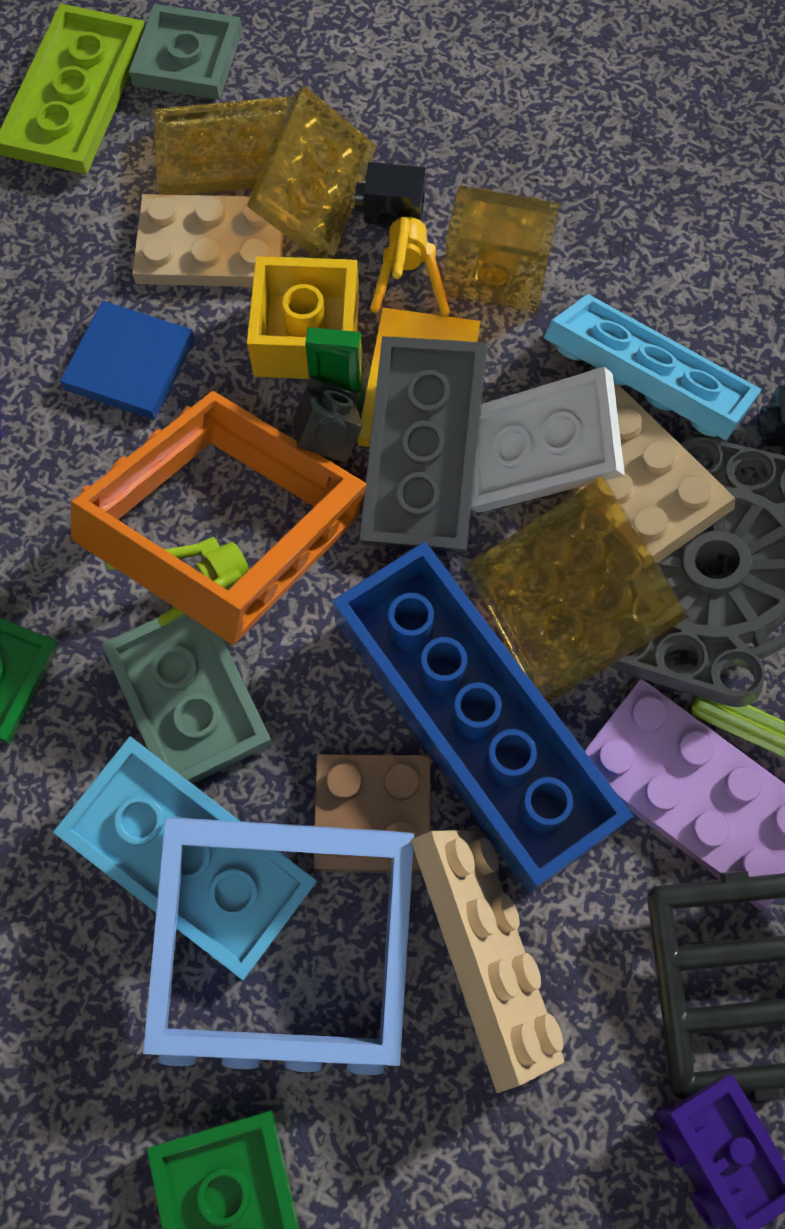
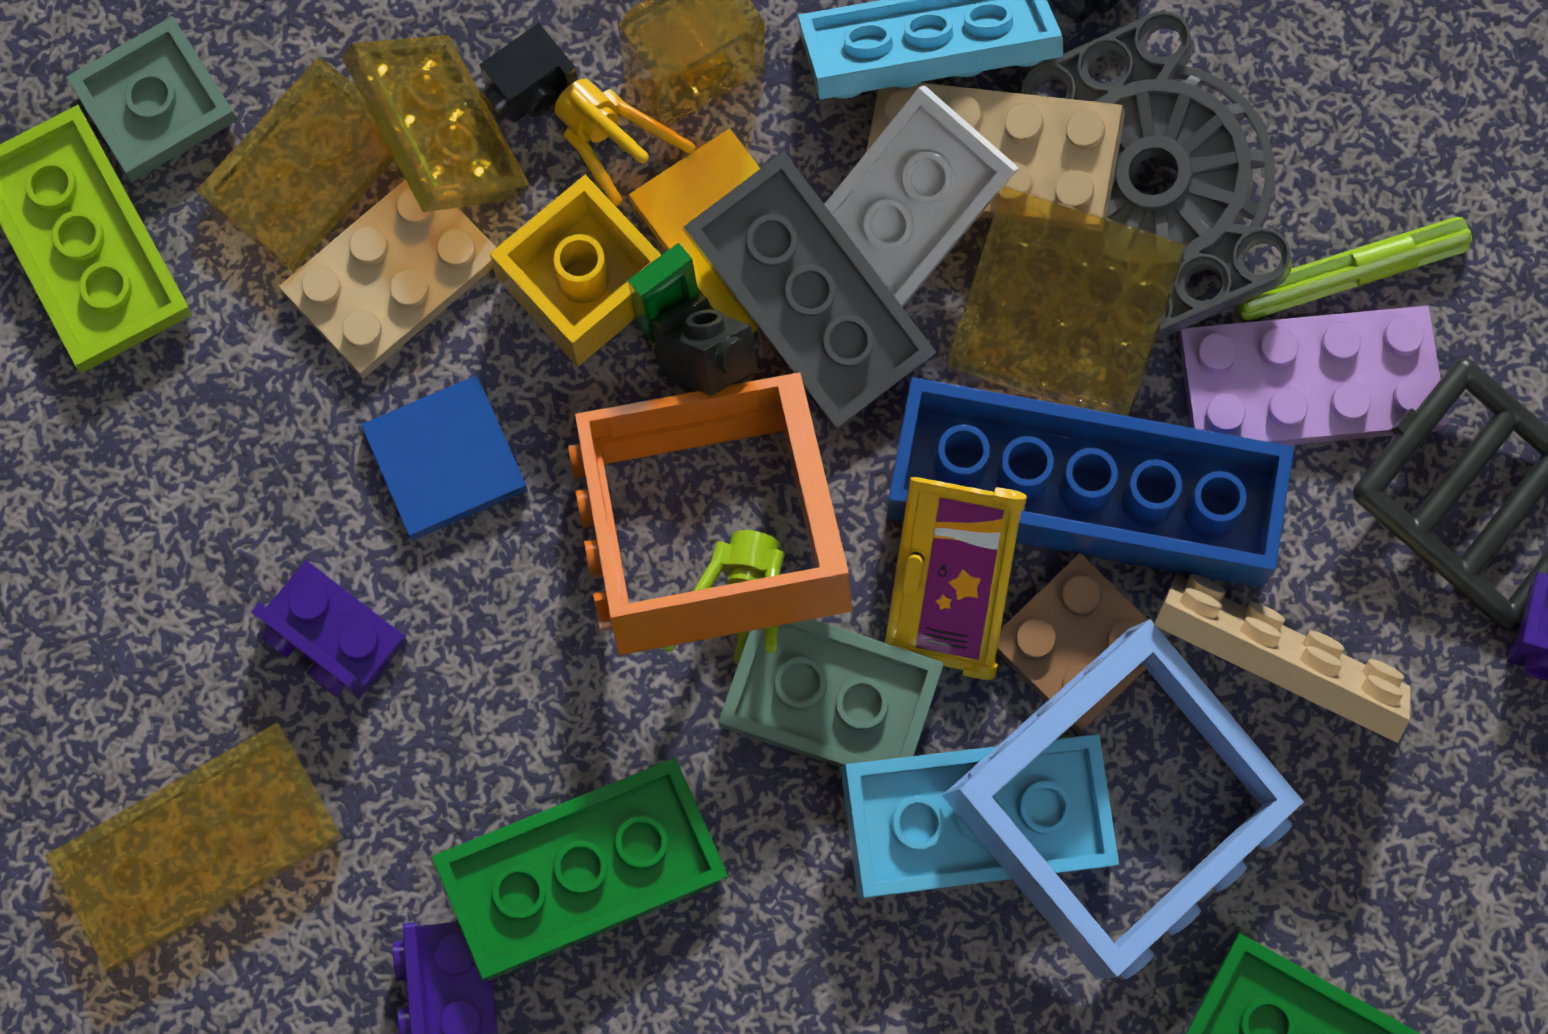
camera: 45 degrees left, 5 degrees up
(321, 701) = (958, 594): none -> door

